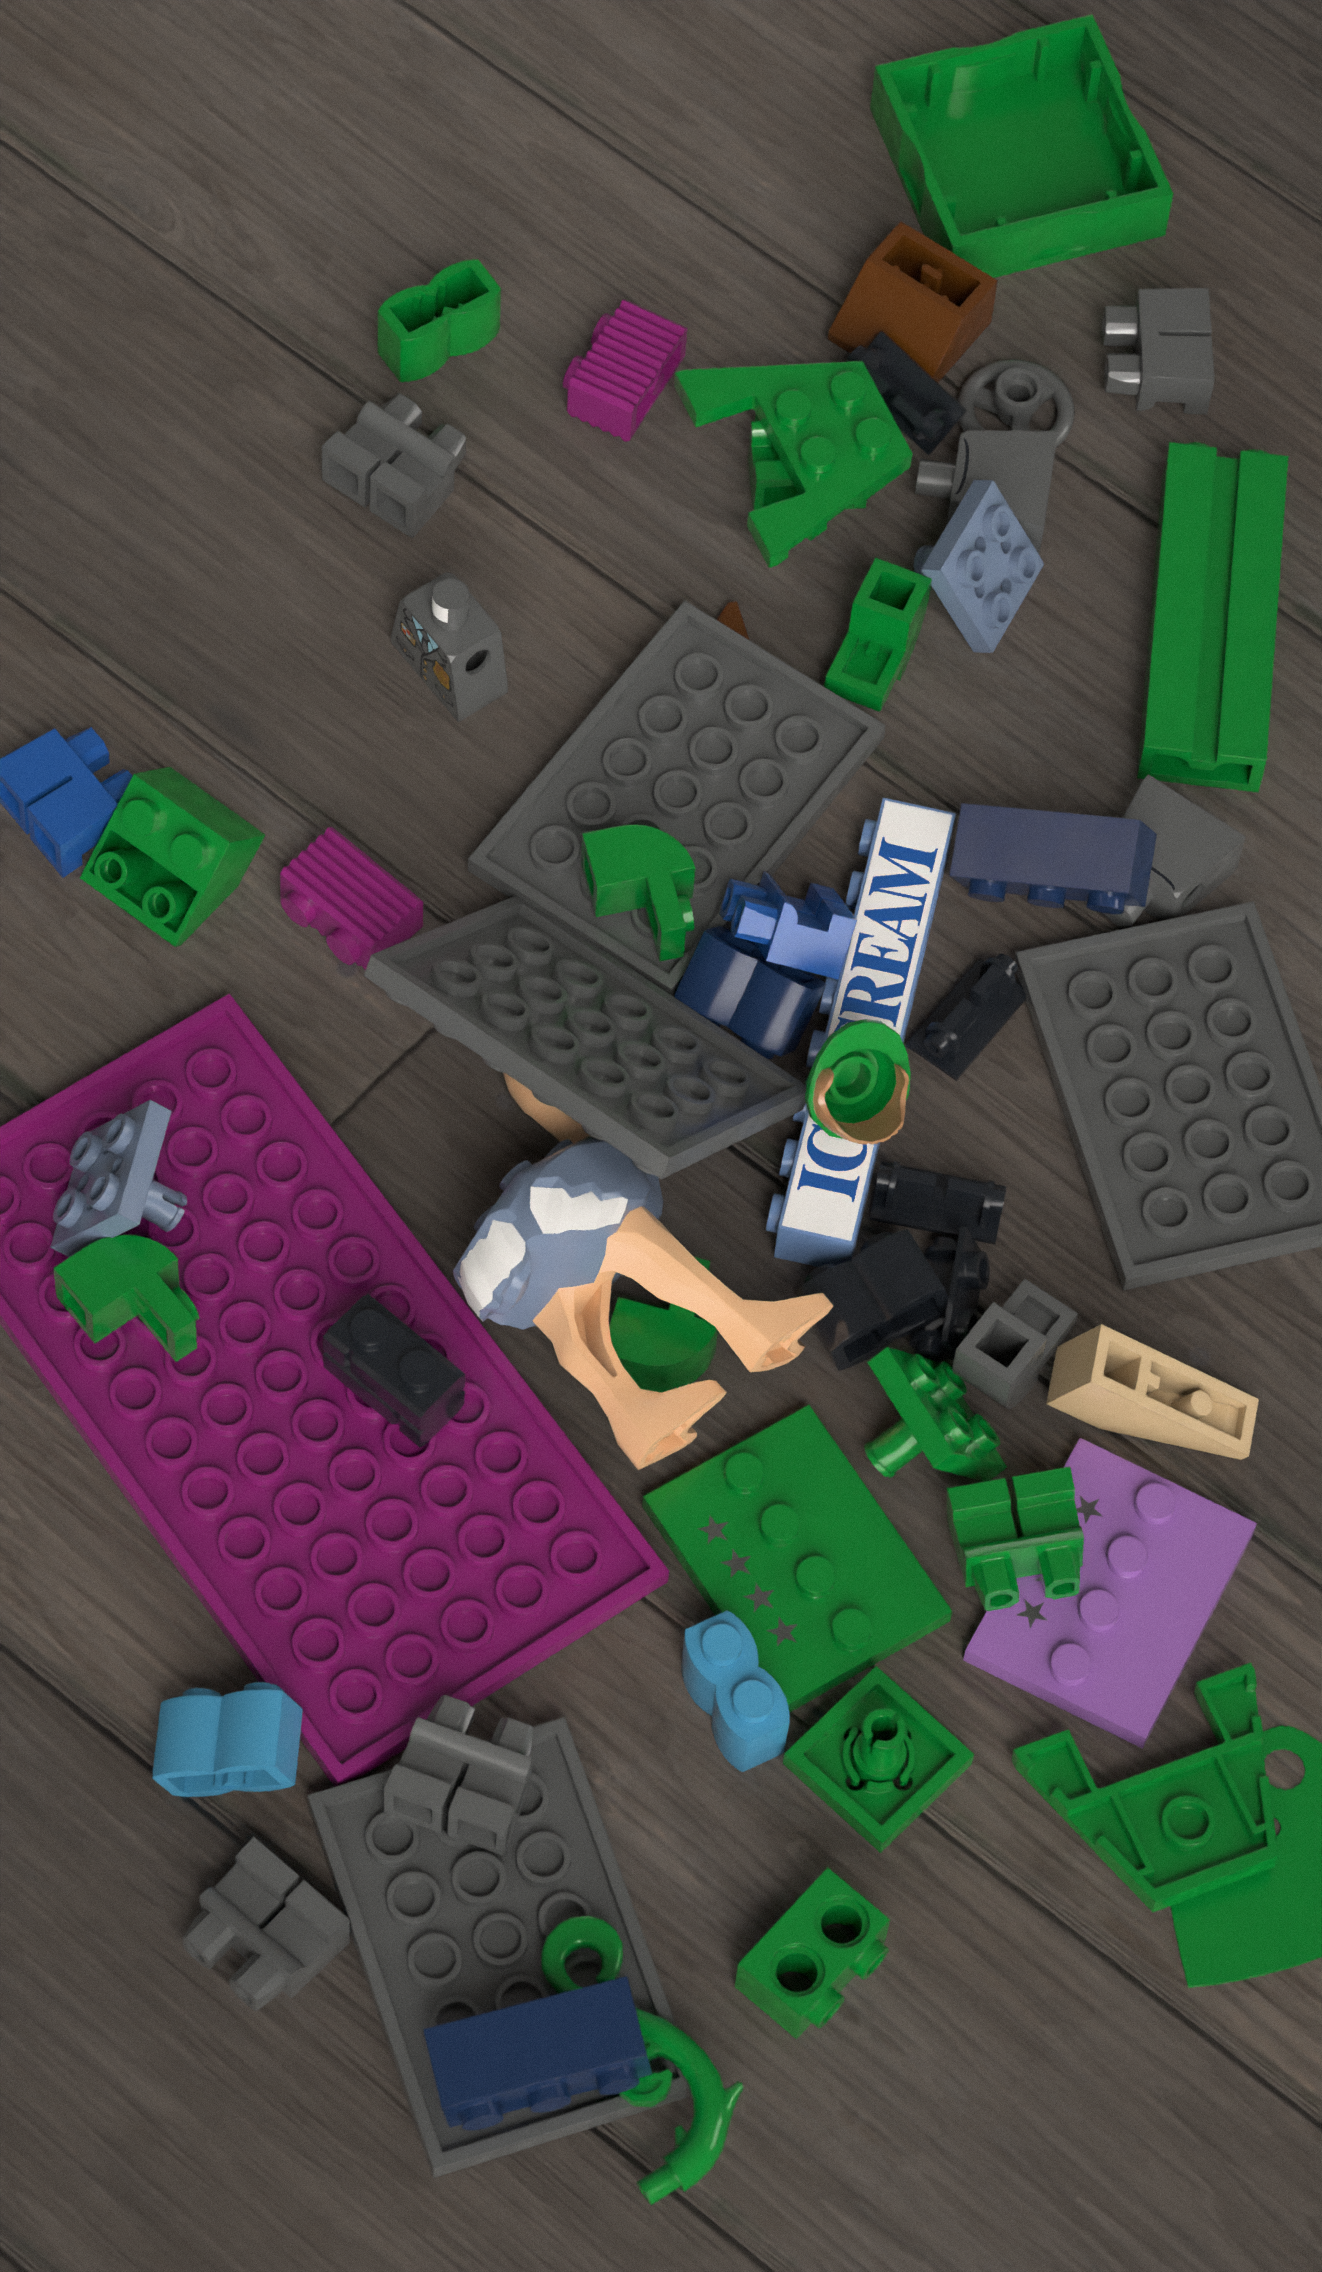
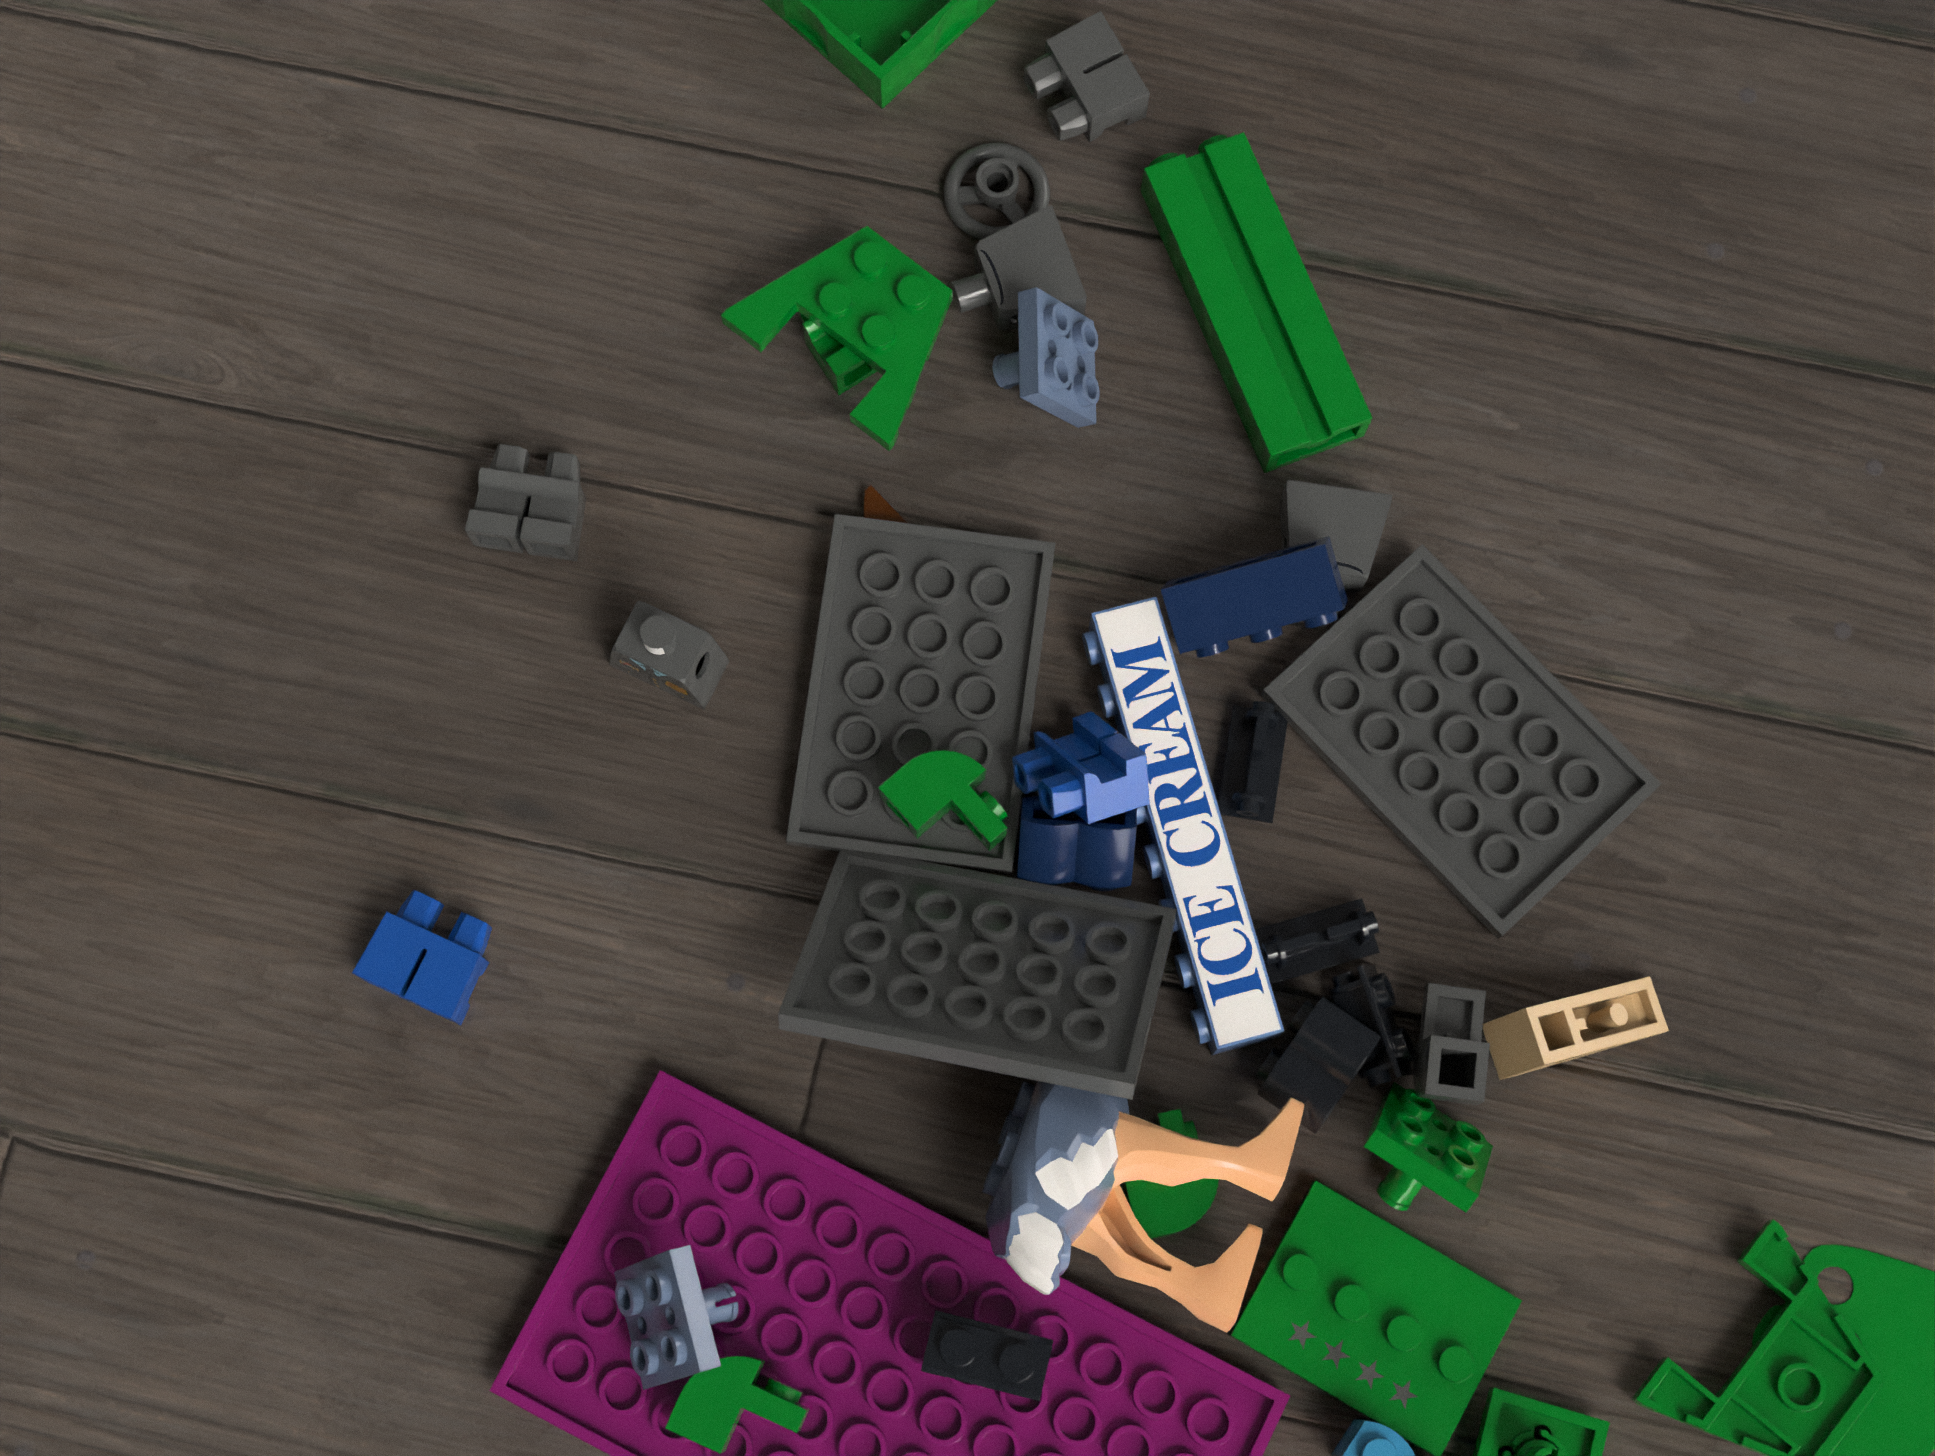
camera: 25 degrees left, 15 degrees up
(171, 854) = (542, 965): green slope -> none
(348, 899) = (710, 930): magenta brick -> none
(439, 320) = (503, 350): green brick -> none
(624, 369) = (669, 321): magenta brick -> none
(860, 1083) = (1227, 903): green piece -> none
(880, 634) = (1007, 465): green brick -> none
(911, 394) = (908, 225): black hinge -> none
(919, 298) = (874, 149): reddish brown slope -> none
(1047, 1540) = (1570, 1206): green hips -> none
(1143, 1600) = (1628, 1210): medium lavender plate -> none

